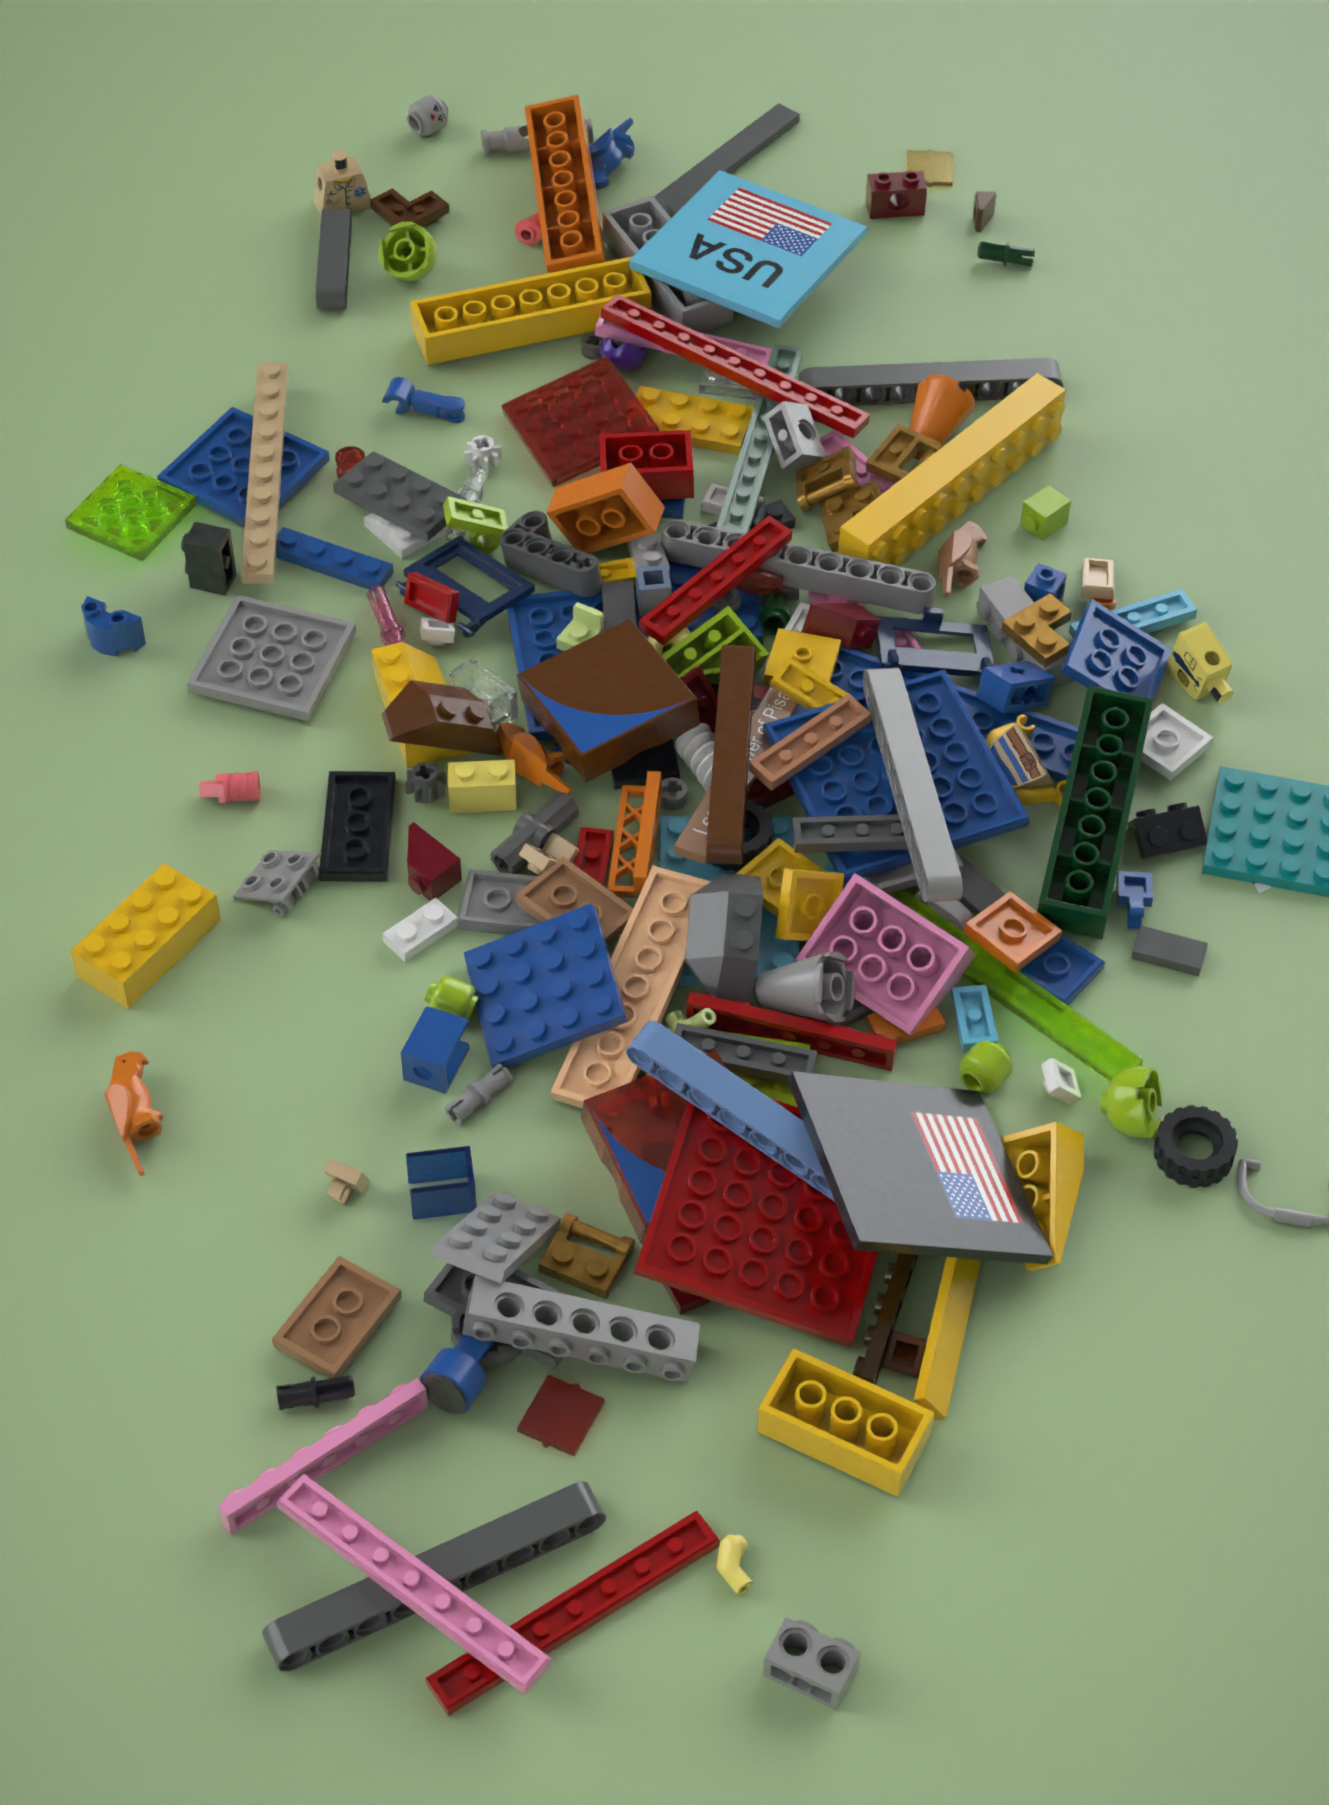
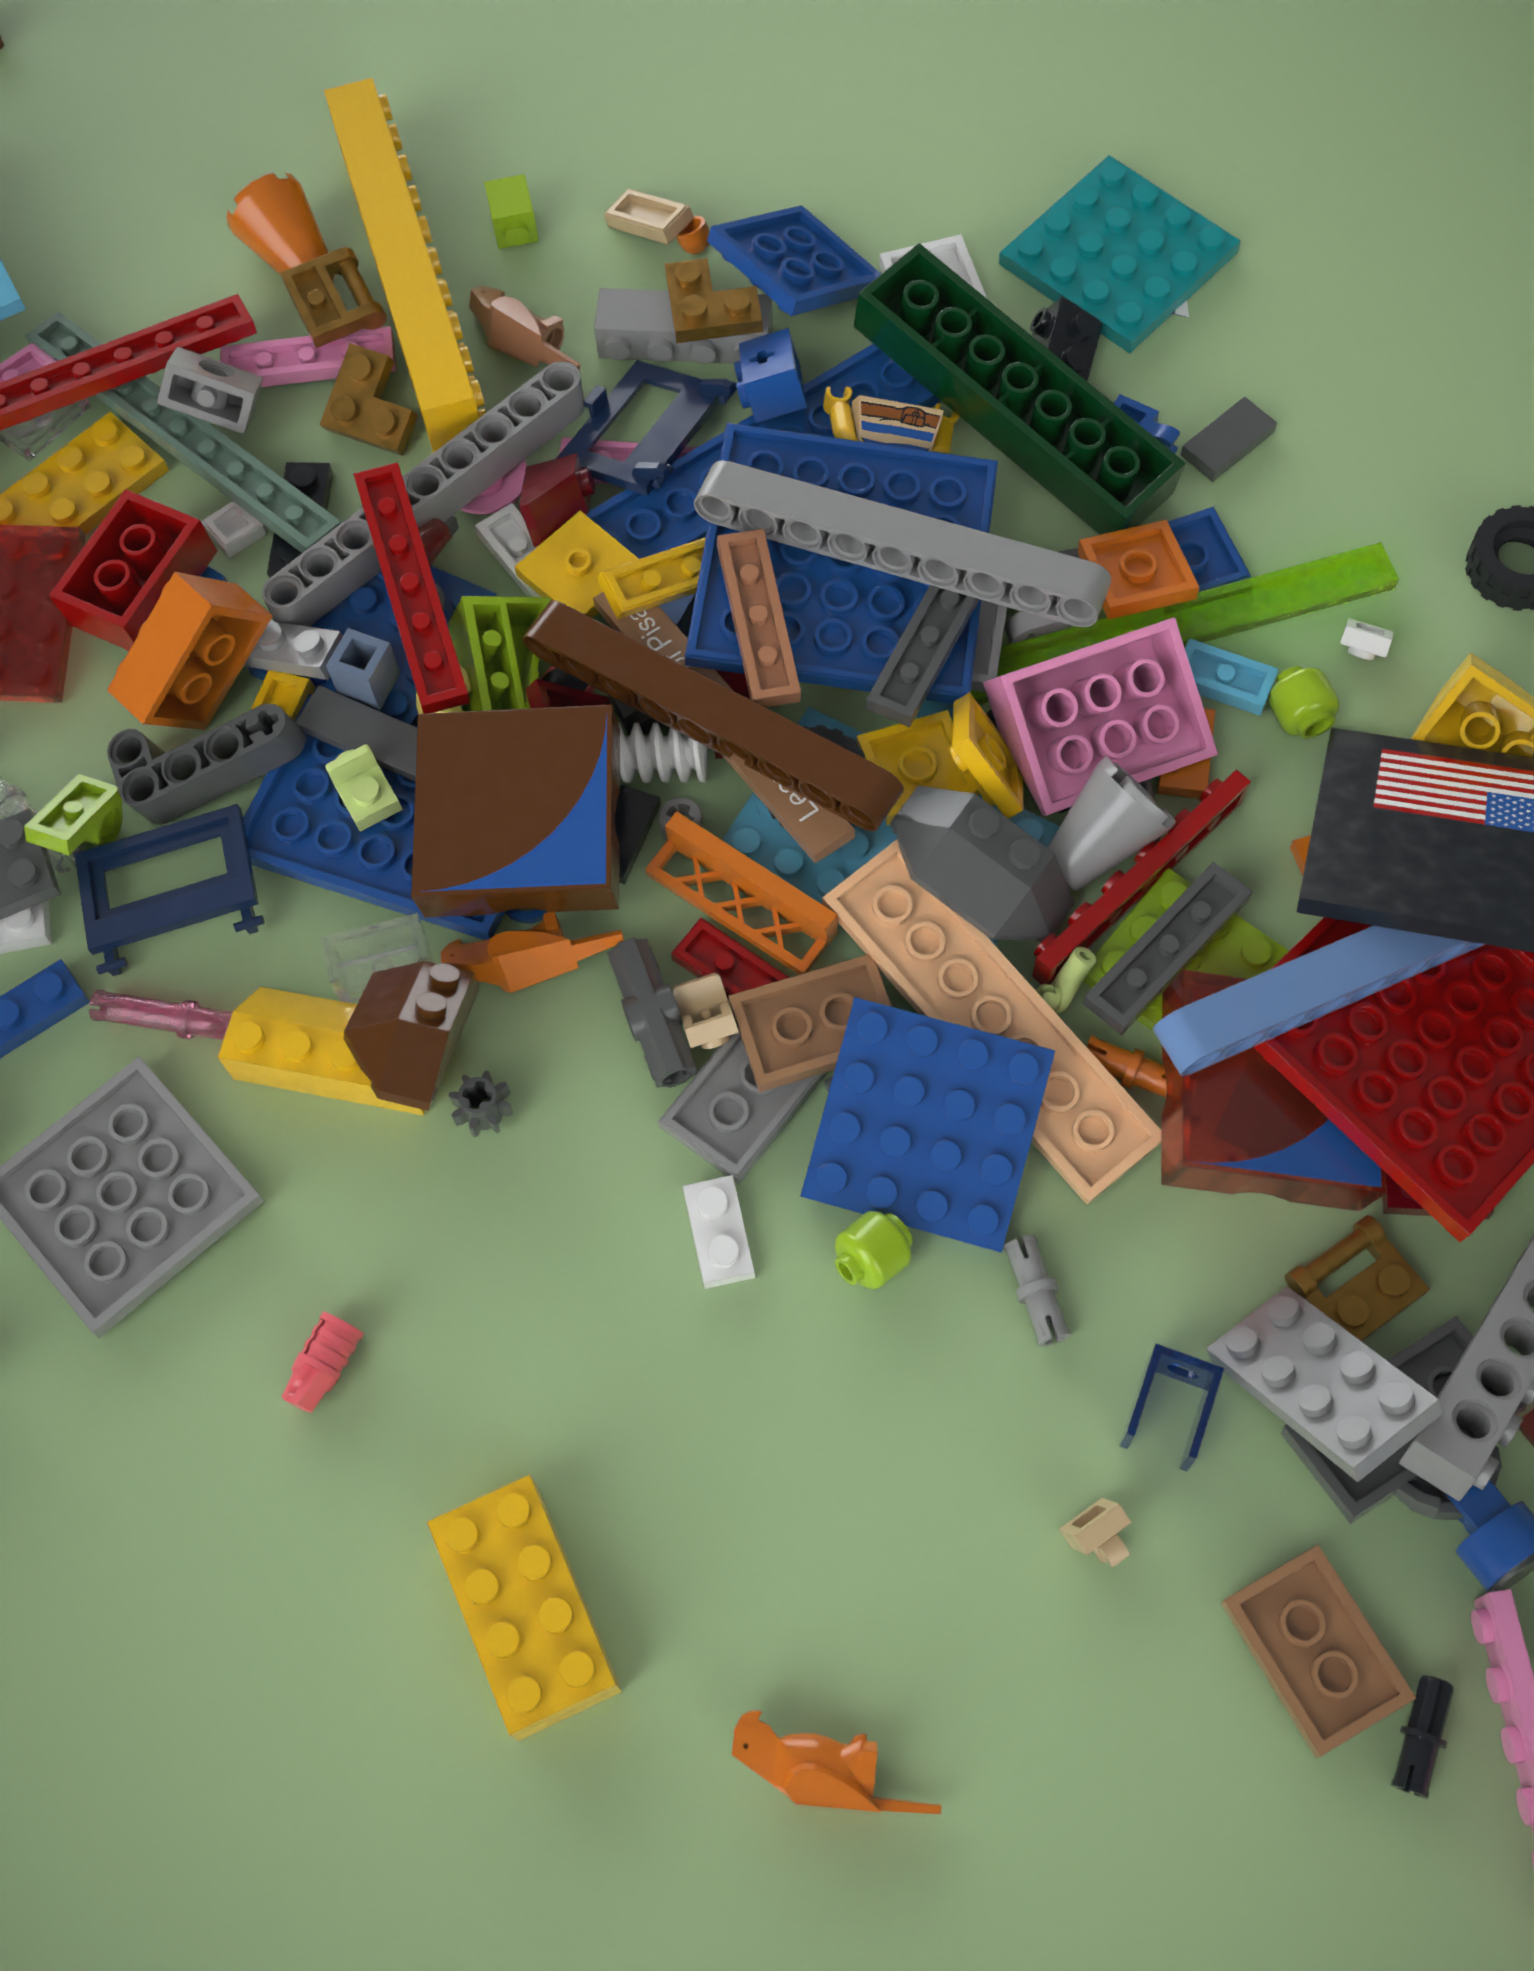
camera: 55 degrees left, 15 degrees up
(280, 879) = (523, 1375): light grey hinge -> none
(357, 826) = (491, 1226): black tile -> none
(430, 864) = (621, 1167): dark red slope -> none
(431, 597) = (165, 938): red tile -> none
(434, 1050) = (948, 1308): blue piece -> none
(436, 631) = (222, 960): white plate -> none
(482, 786) = (535, 1036): light yellow brick -> none
(775, 613) = (471, 562): dark green cone -> none
(826, 478) = (287, 389): pearl gold plate -> none
(899, 382) = (201, 231): dark grey beam -> none
(1005, 253) = (69, 36): dark green axle -> none
(1045, 581) = (633, 266): blue brick -> none
(1133, 1102) = (1442, 581): lime cylinder -> none
(1155, 612) = (734, 200): medium azure plate -> none
(1200, 664) = (855, 186): light yellow torso -> none

